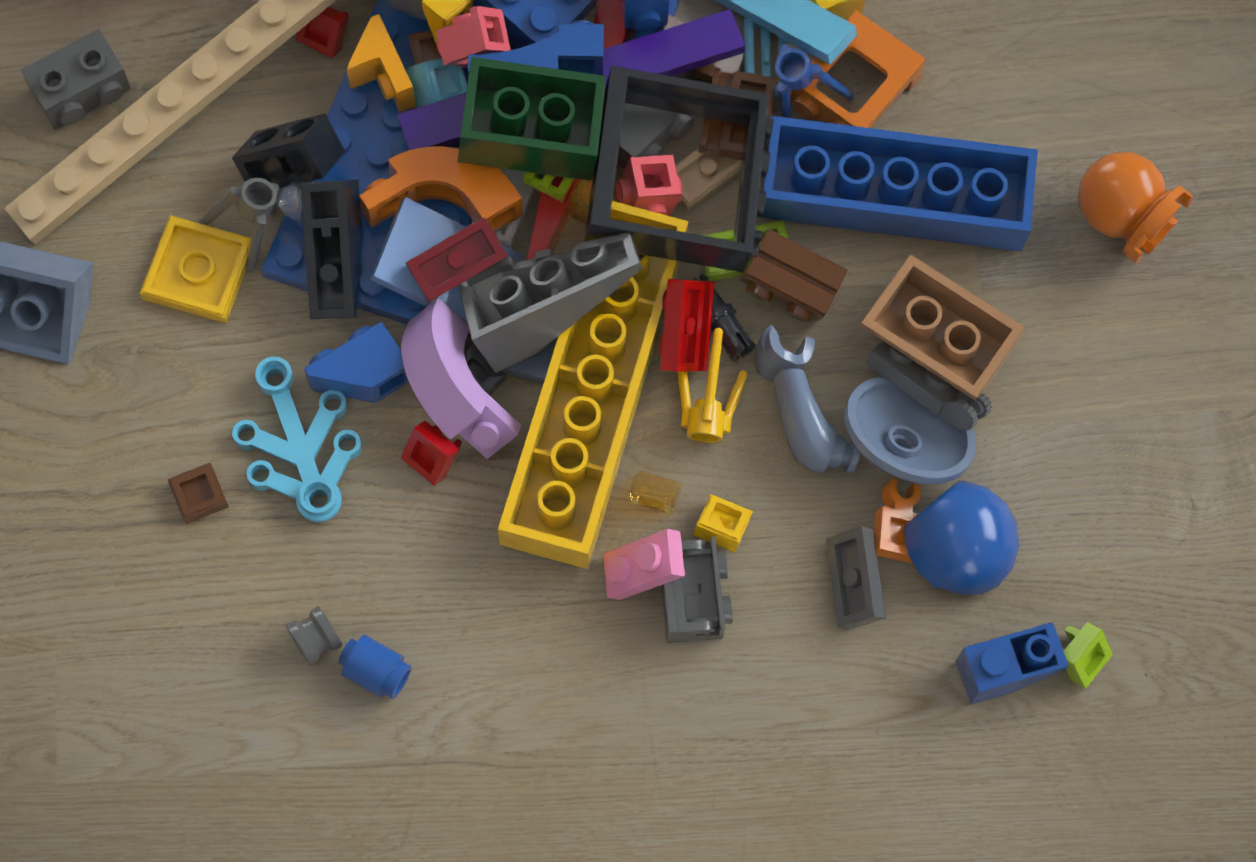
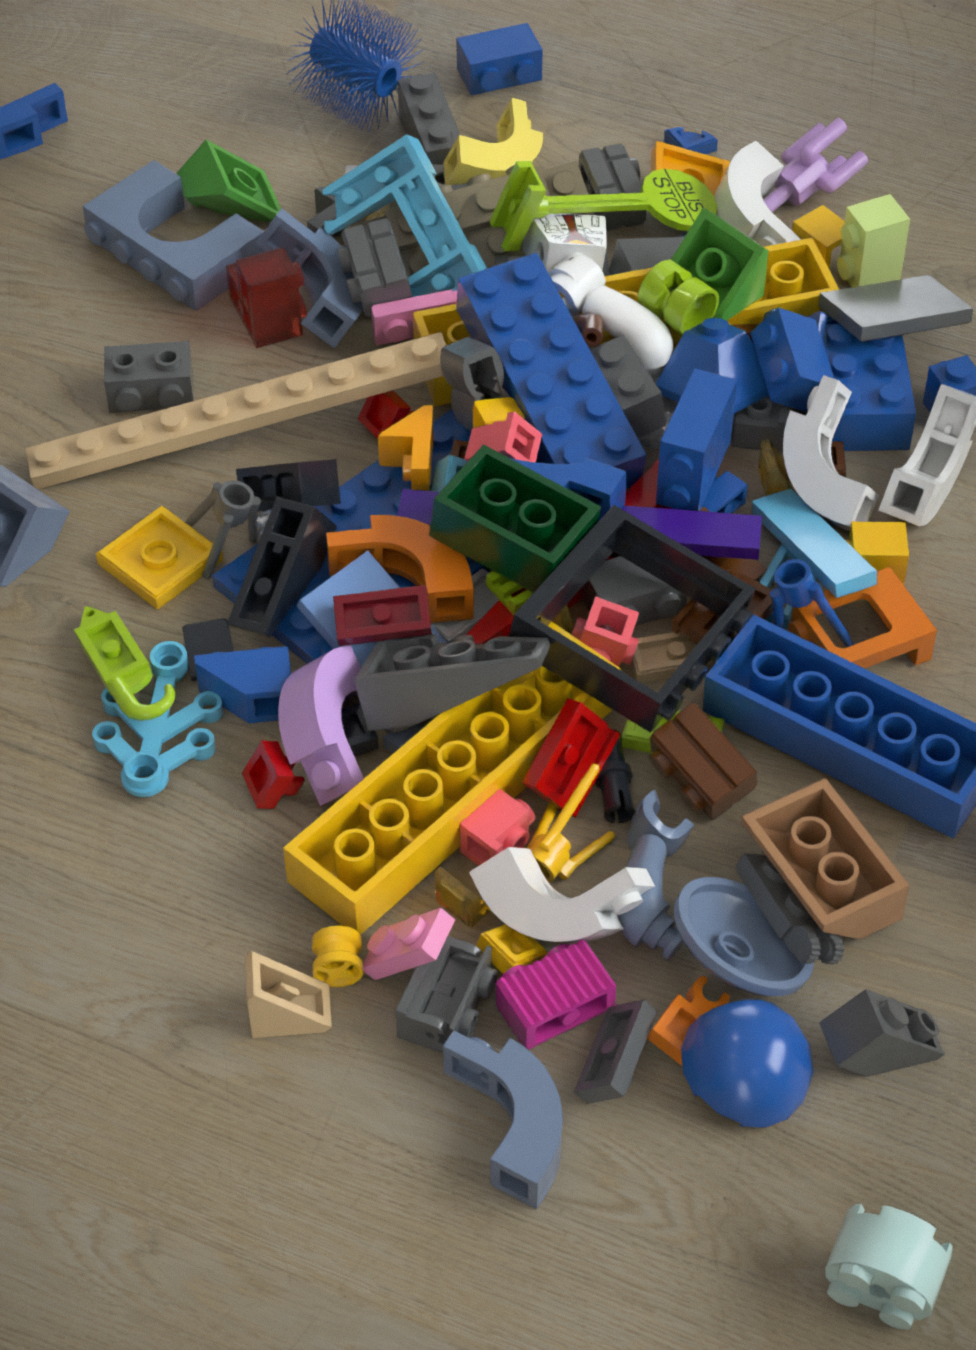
camera: 30 degrees right, 20 degrees down
(198, 493) = (42, 728): reddish brown tile -> none
(233, 400) = (119, 663): none -> lime plate
(299, 345) = (206, 639): none -> black slope
(314, 635) = (65, 880): dark grey wheel -> none
(374, 667) = (103, 930): blue brick -> none
(565, 658) = (284, 999): none -> tan slope
(585, 598) = (337, 956): none -> yellow wheel
(654, 418) = (495, 826): none -> coral brick
(738, 481) = (527, 903): none -> white arch
(780, 549) = (554, 993): none -> dark pink brick
(819, 662) = (522, 1085): none -> sand blue arch
(1010, 662) = (731, 1193): blue slope -> none
(1054, 466) = (880, 1035): none -> dark grey slope
(1086, 653) = (816, 1224): lime tile -> none
(1157, 668) = (887, 1265): none -> light aqua brick

